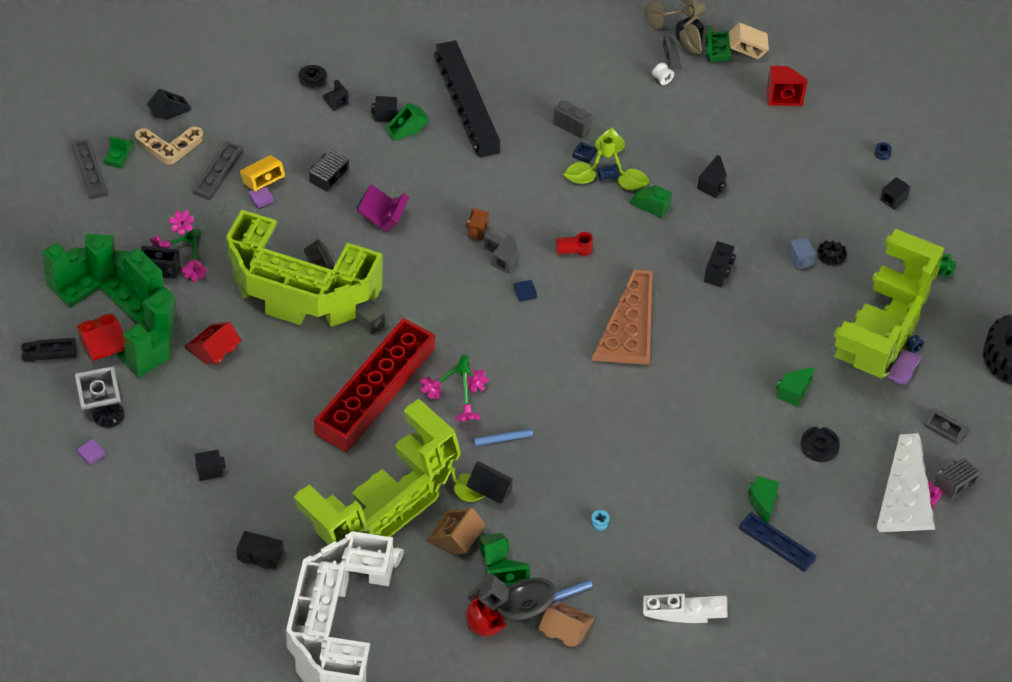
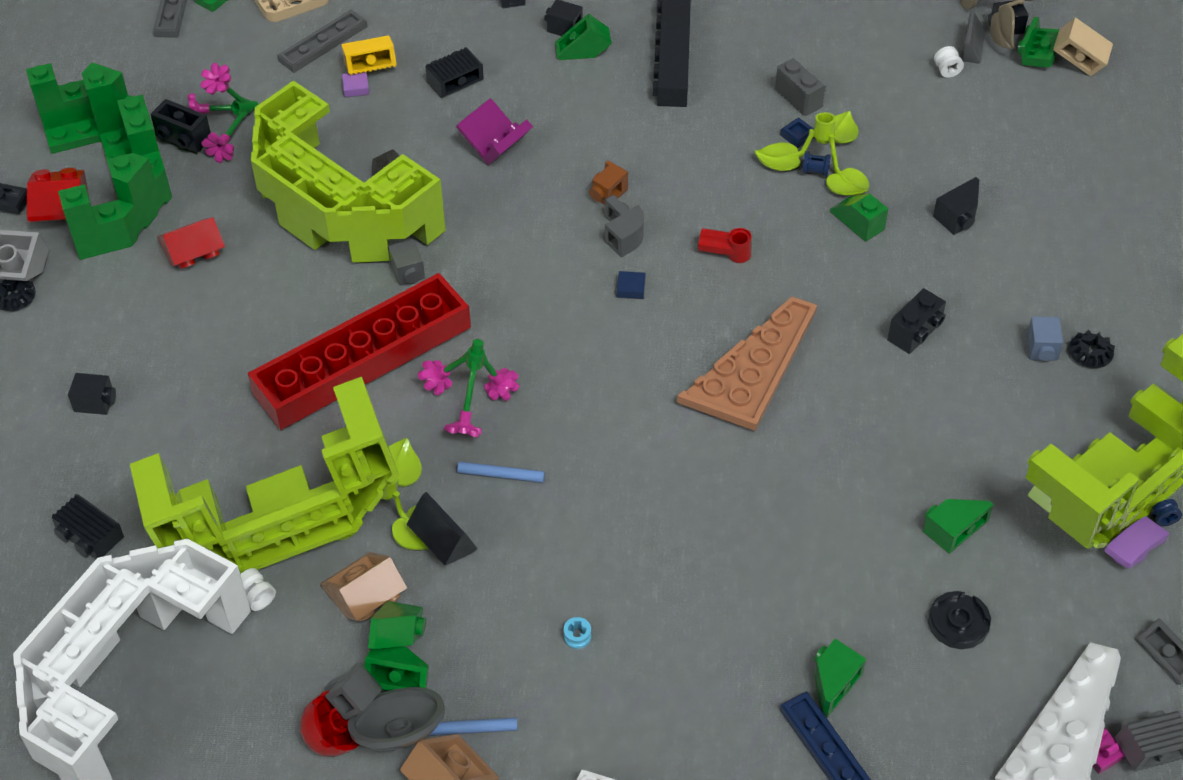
camera: 25 degrees right, 0 degrees up
(785, 87) = (1111, 115): red slope -> none

